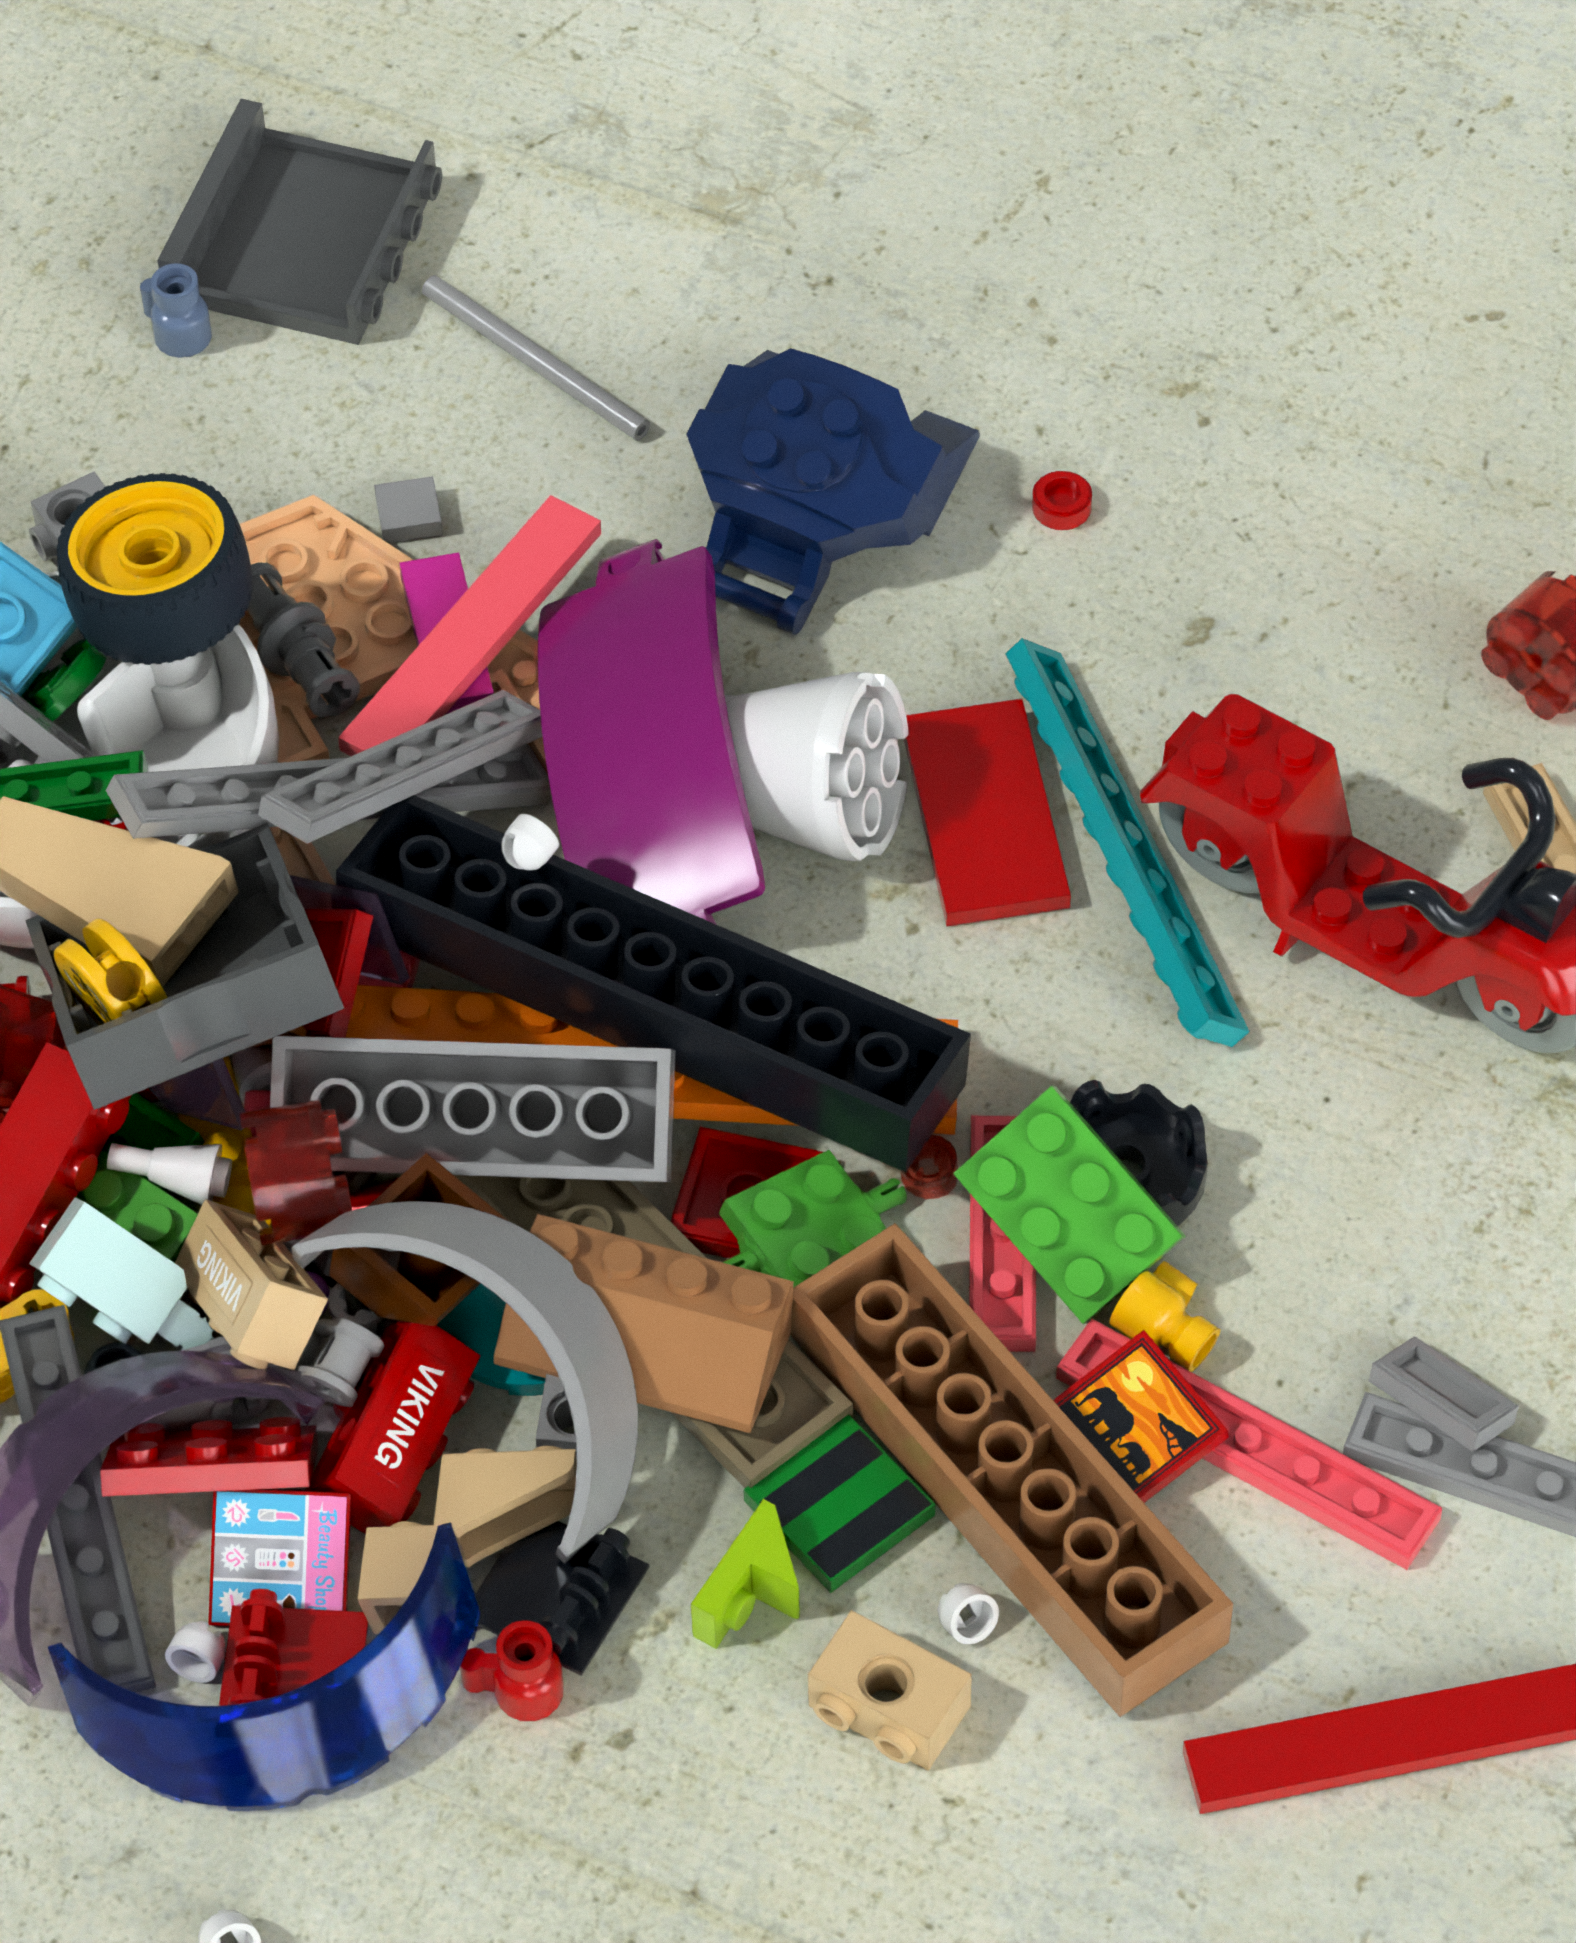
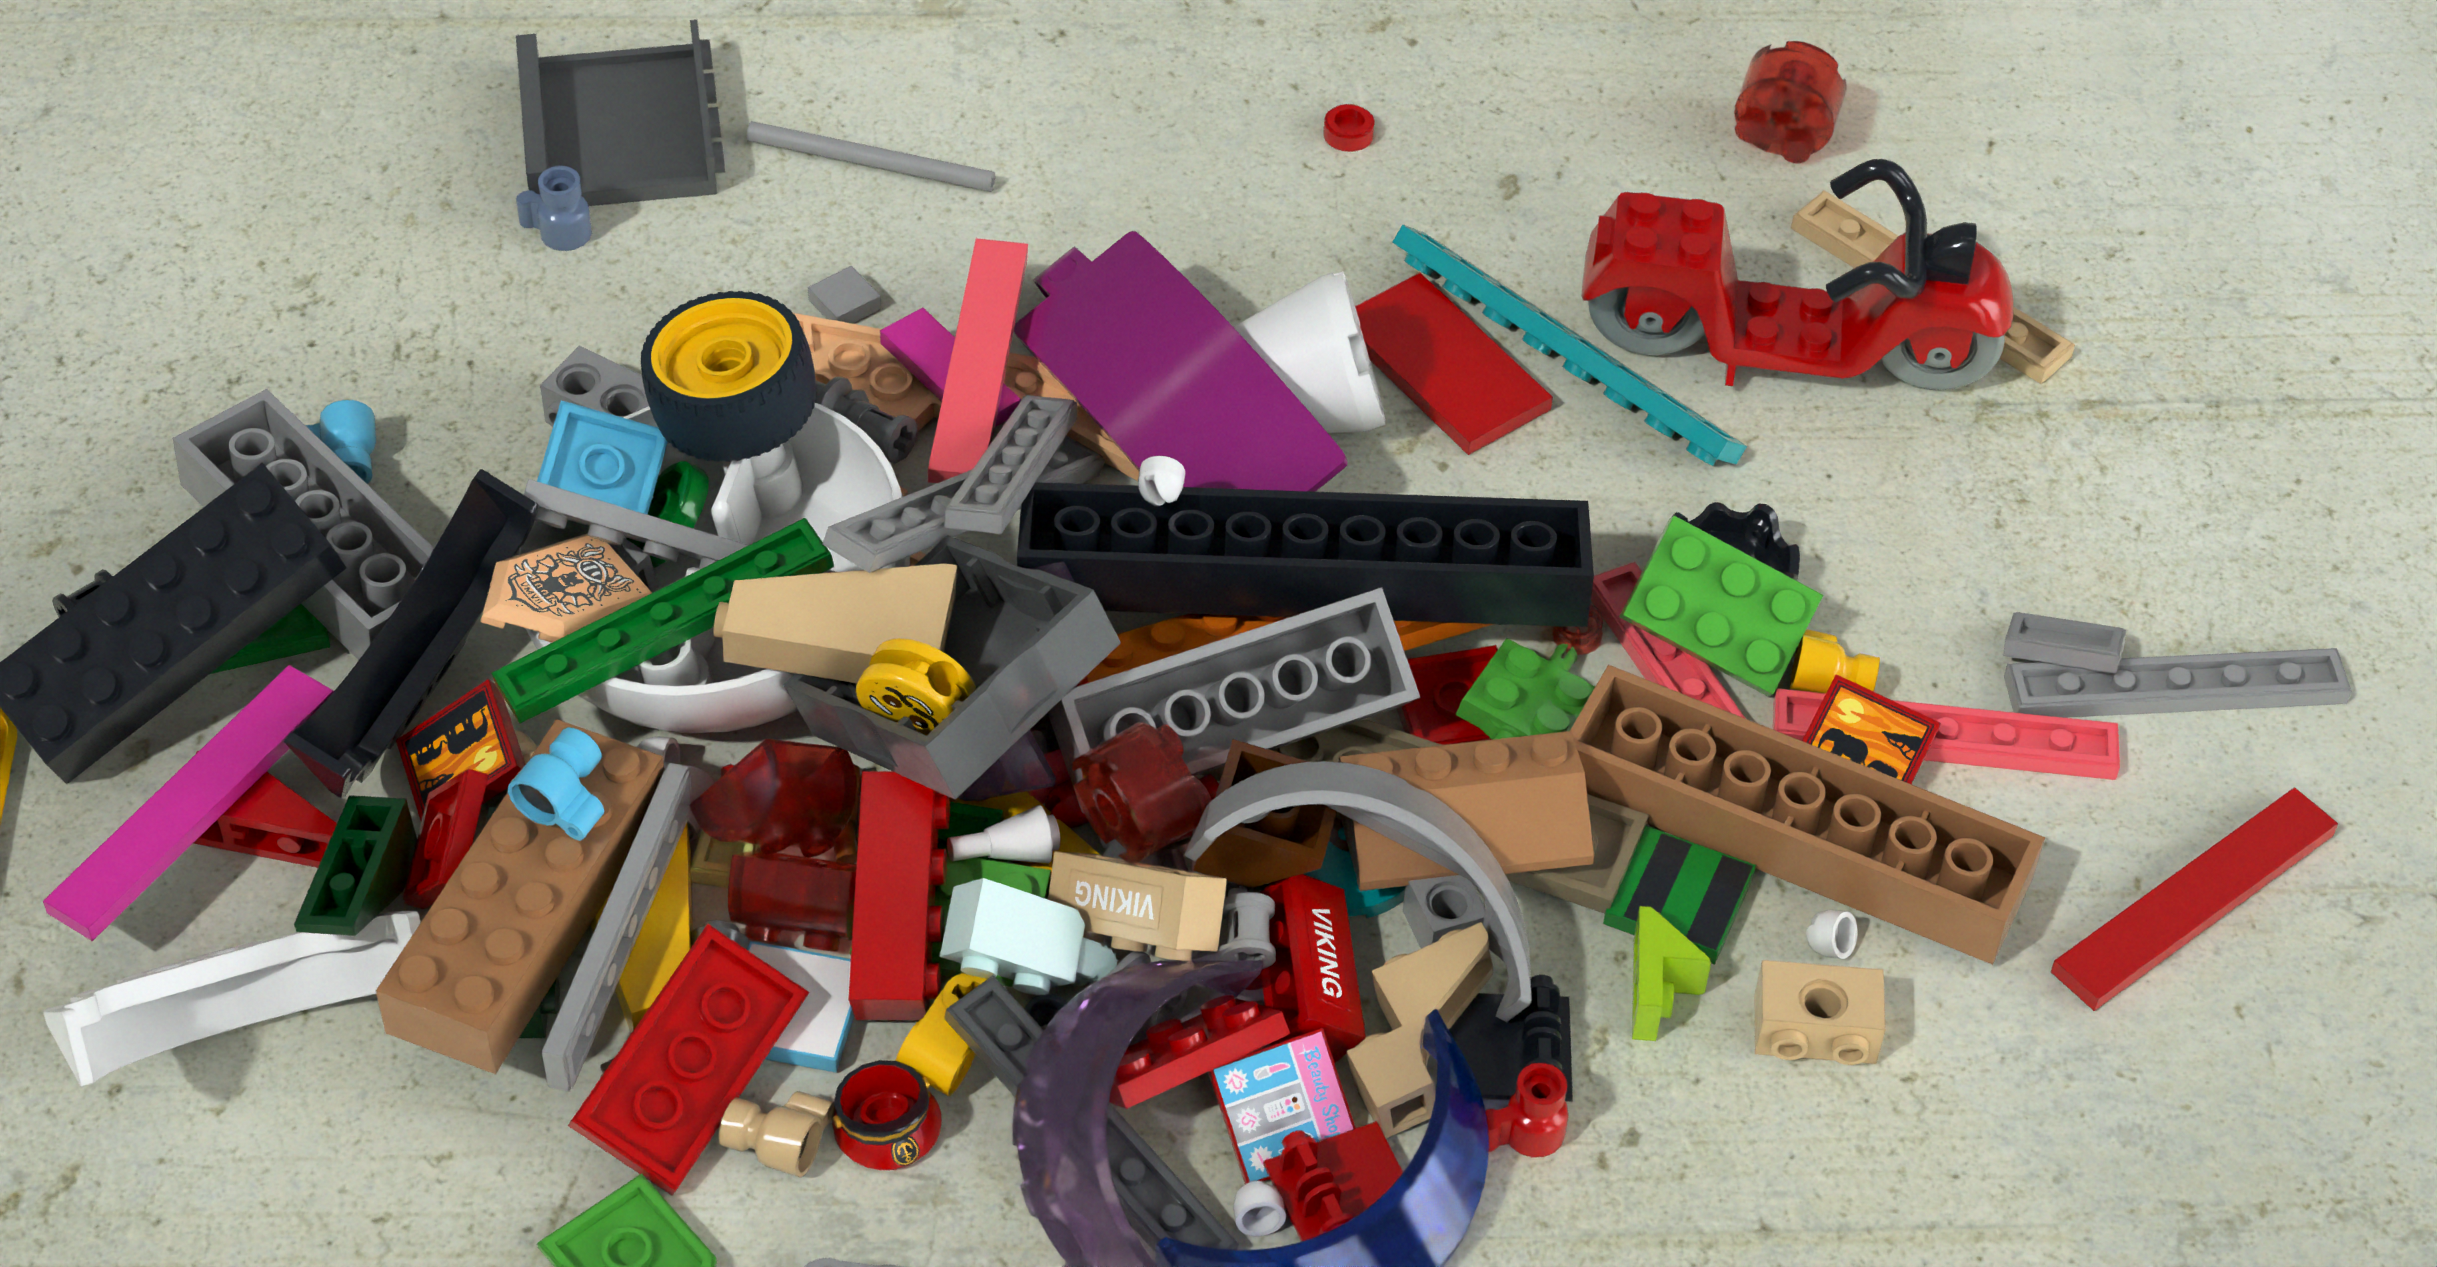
camera: 30 degrees left, 5 degrees down
(813, 469) = (1163, 154): dark blue piece -> none

